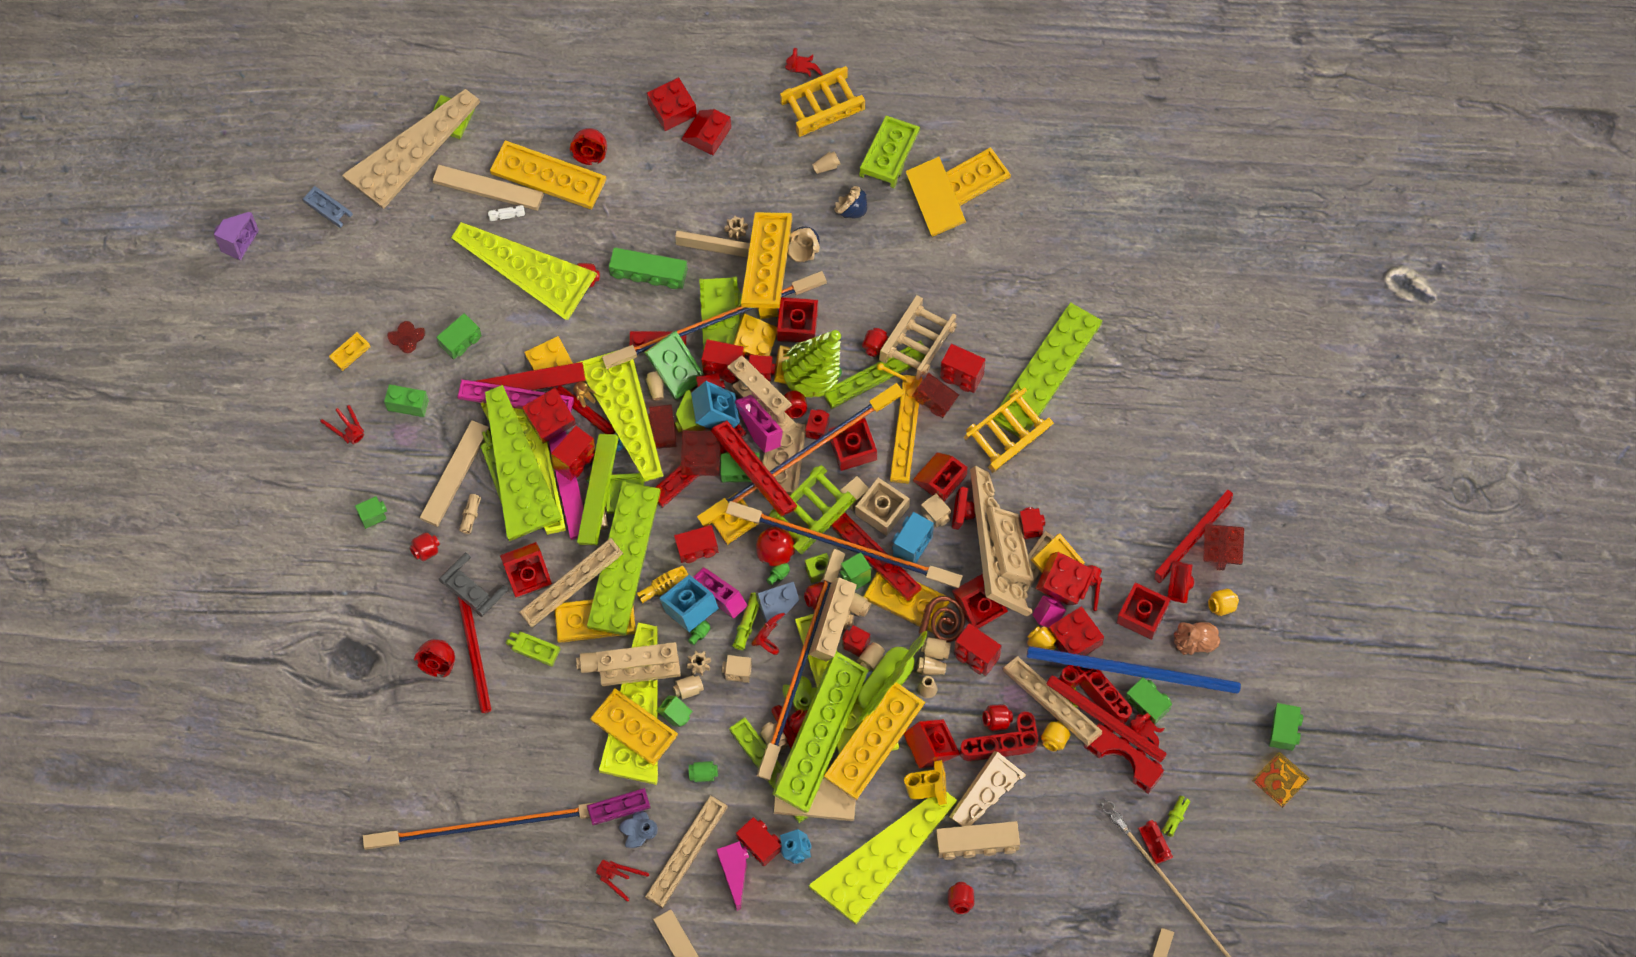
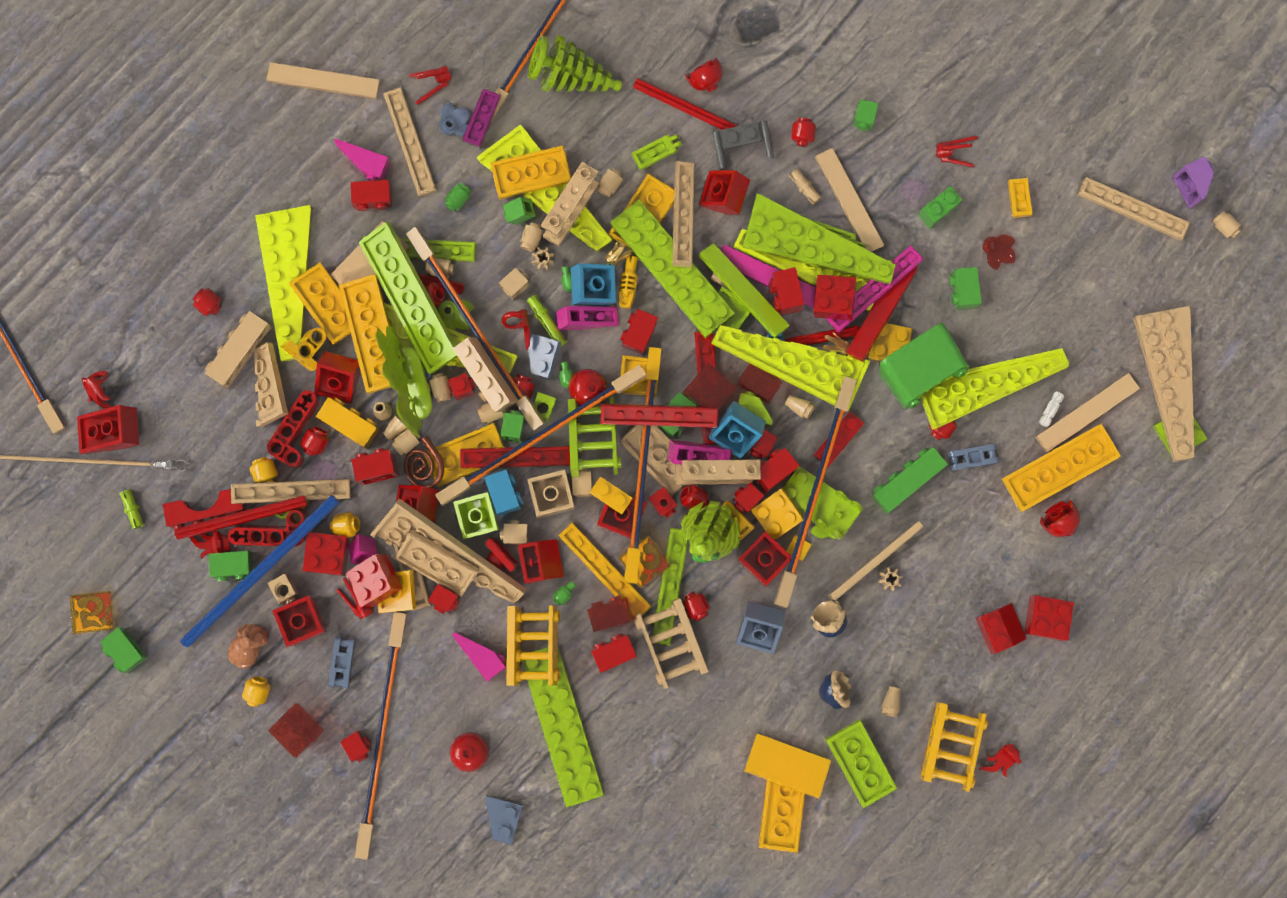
camera: 125 degrees right, 15 degrees up
(252, 193) = (1227, 225): none -> tan brick
(291, 268) = (1133, 208): none -> tan tile
(326, 206) = (1169, 273): sand blue hinge -> none
(522, 769) = (566, 68): none -> lime plant
(551, 316) = (922, 365): none -> bright green windscreen
(591, 238) = (973, 457): none -> sand blue plate
(652, 609) = (613, 255): none -> pearl gold piece
(674, 364) = (803, 430): bright green tile -> none
(766, 260) = (834, 572): yellow plate -> none
(795, 846) = (343, 215): dark azure brick -> none
(846, 456) = (611, 495): none -> yellow plate
(850, 287) = (761, 627): none -> sand blue slope
(865, 394) = (651, 561): none -> clear yellow tile
(880, 805) = (323, 301): none -> yellow tile
(909, 380) = (641, 605): yellow hinge -> none
(946, 544) = (476, 515): none -> lime slope
(950, 443) = (563, 593): none -> bright green cylinder
(960, 705) = (348, 422): none -> yellow brick
(1048, 461) = (484, 659): none -> dark pink slope
(1108, 924) = (94, 390): none -> red piece
(1125, 417) = (469, 752): none -> red cylinder
(1126, 652) = (276, 585): none -> tan brick
(1133, 888) = (108, 429): none -> red slope
(1144, 559) = (341, 662): none -> sand blue plate
(1150, 357) = (503, 818): none -> sand blue wing
(1155, 842) = (125, 476): red hinge -> none
(1180, 581) = (297, 670): red tile -> none
(1195, 497) = (356, 746): none -> red brick
(1197, 532) = (326, 715): red tile -> none
(1247, 446) = (366, 829): none -> piece

